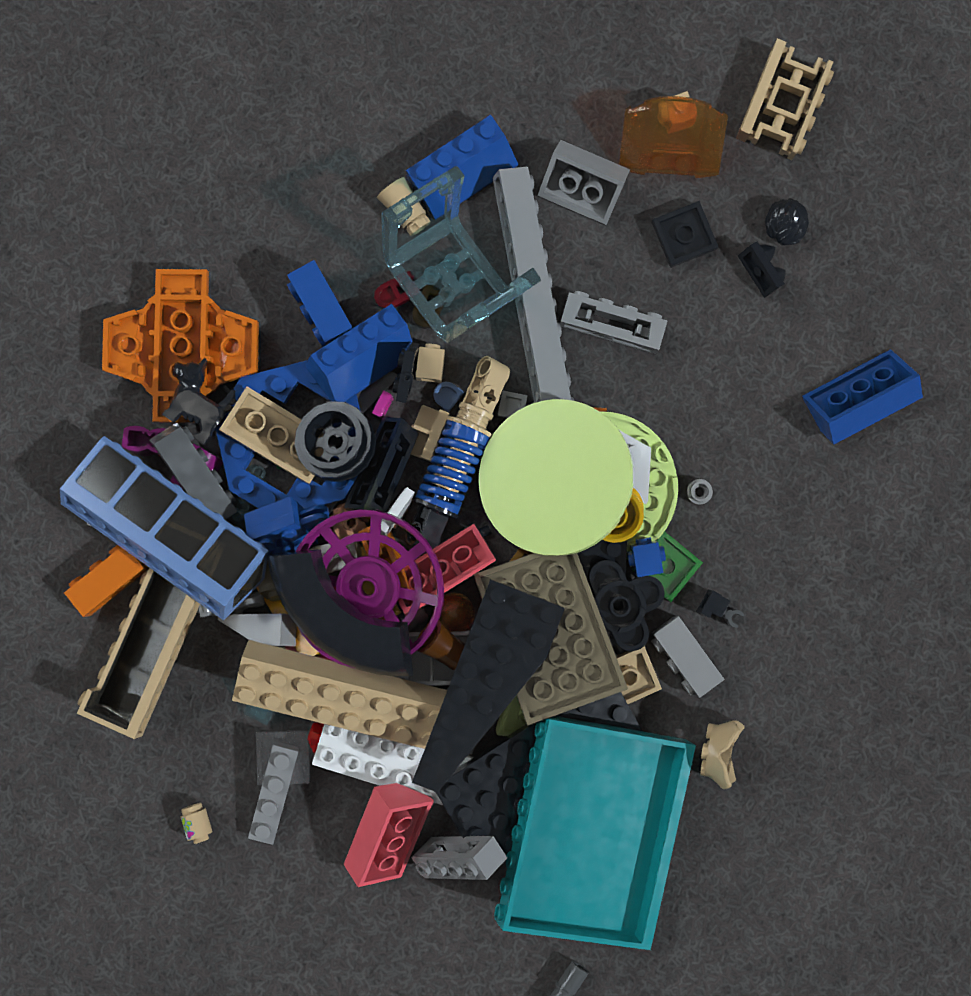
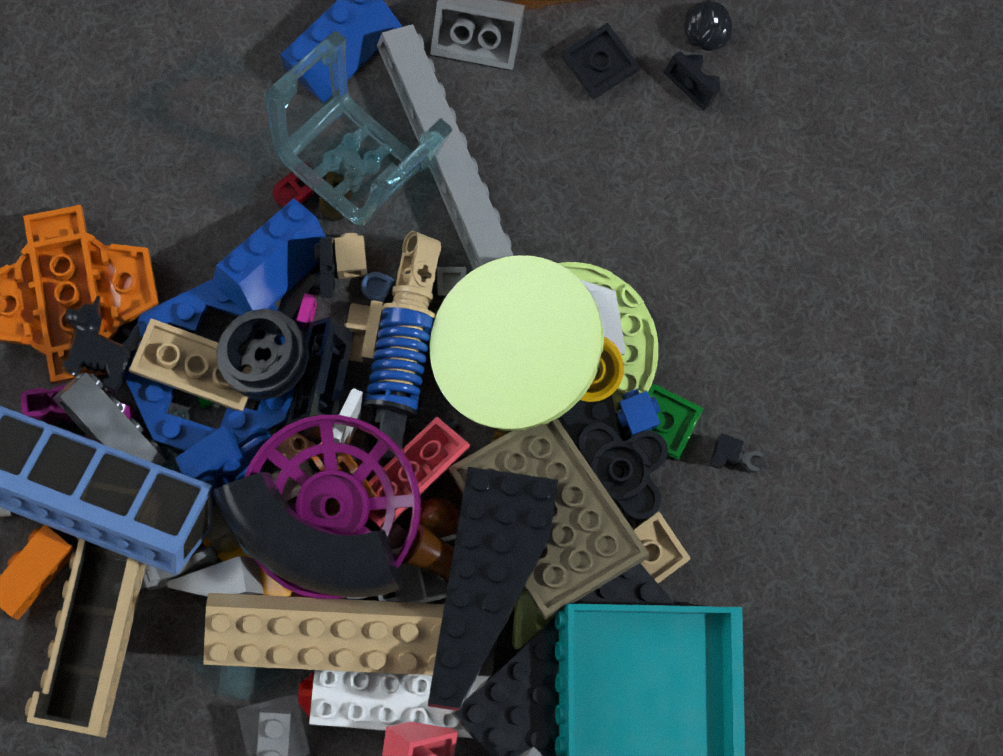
camera: 10 degrees left, 10 degrees down
(319, 303) = (212, 212): blue brick -> none
(393, 194) = (300, 107): tan plant -> none
(627, 315) = (503, 161): light grey brick -> none
(686, 657) = (709, 515): light grey brick -> none
(706, 488) = (683, 323): light grey plate -> none
(718, 752) = (769, 609): tan brick -> none
(863, 396) = (837, 191): blue slope -> none

